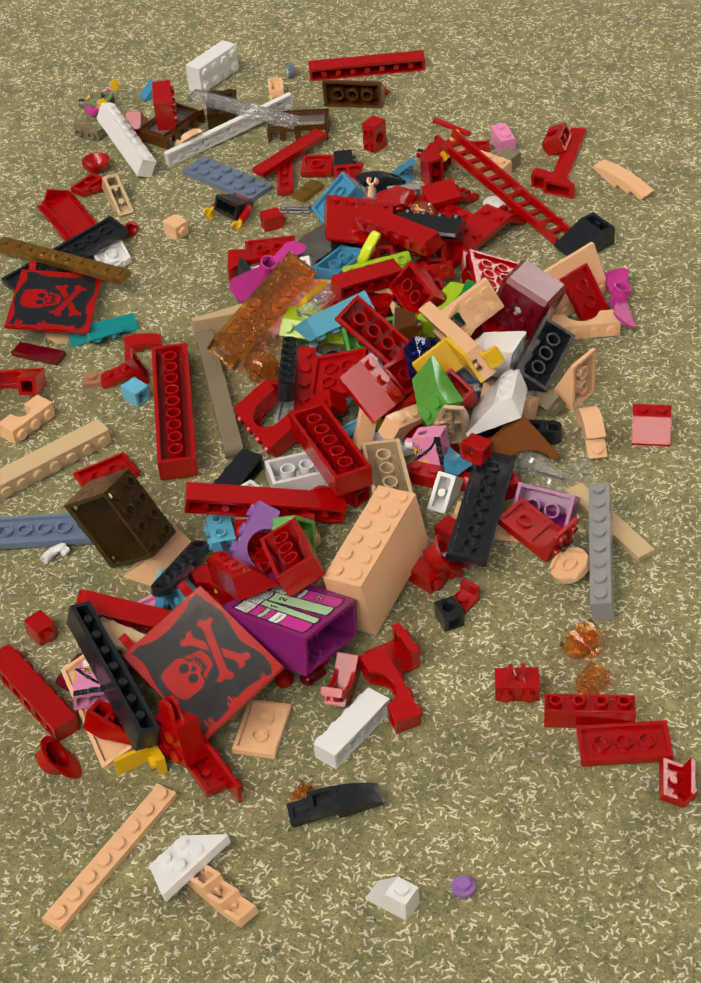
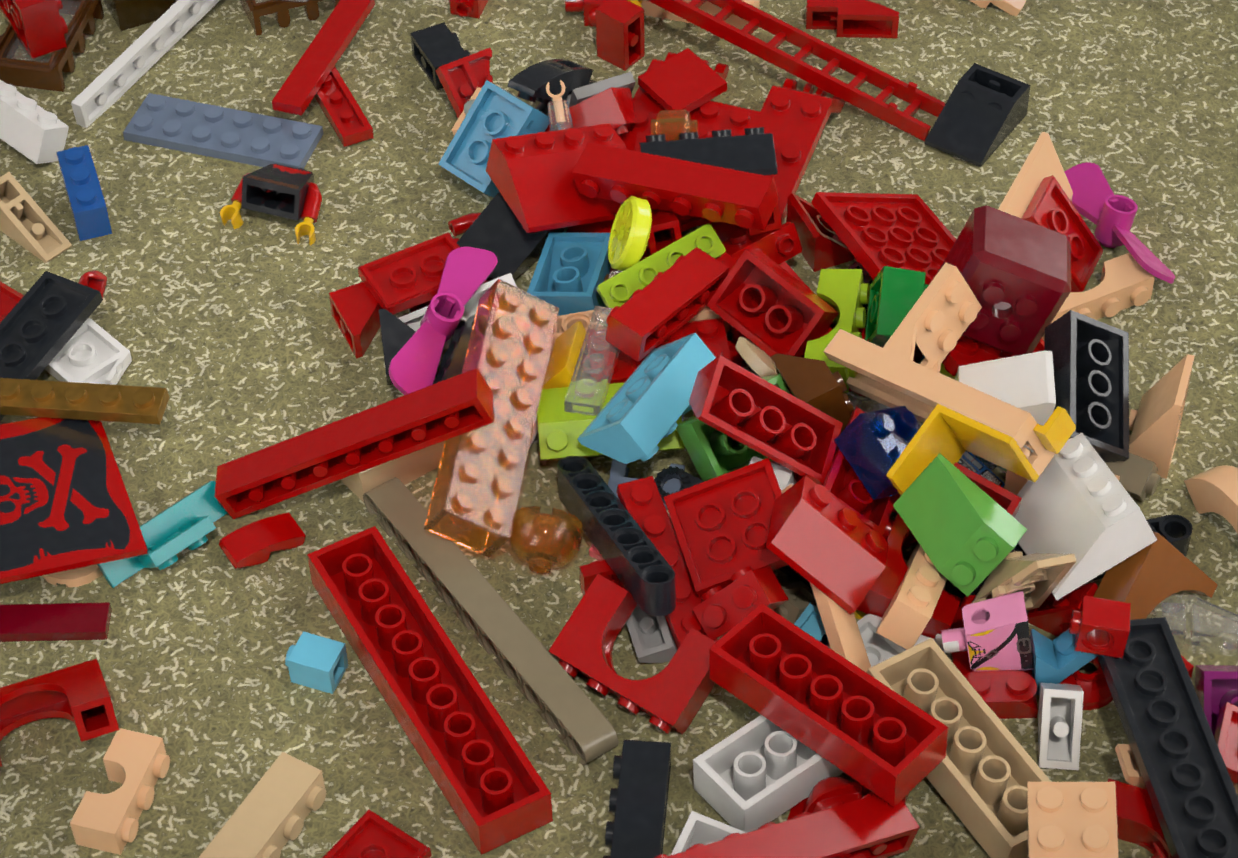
camera: 25 degrees left, 5 degrees up
(92, 380) = (203, 655): nougat plate -> none
(125, 371) = (269, 623): red bracket -> none
(149, 190) = (84, 192): none -> blue brick
(175, 227) = (185, 263): light nougat brick -> none
(189, 135) = (103, 60): light nougat tile -> none
(194, 306) = (355, 444): none -> red brick
(272, 219) = (368, 203): red brick -> none
(295, 208) = (397, 169): axle -> none
(307, 191) = (398, 125): pearl gold tile -> none
(317, 165) = (387, 67): red plate -> none
(405, 170) = (564, 44): dark azure slope -> none
(494, 201) = (763, 75): white piece -> none

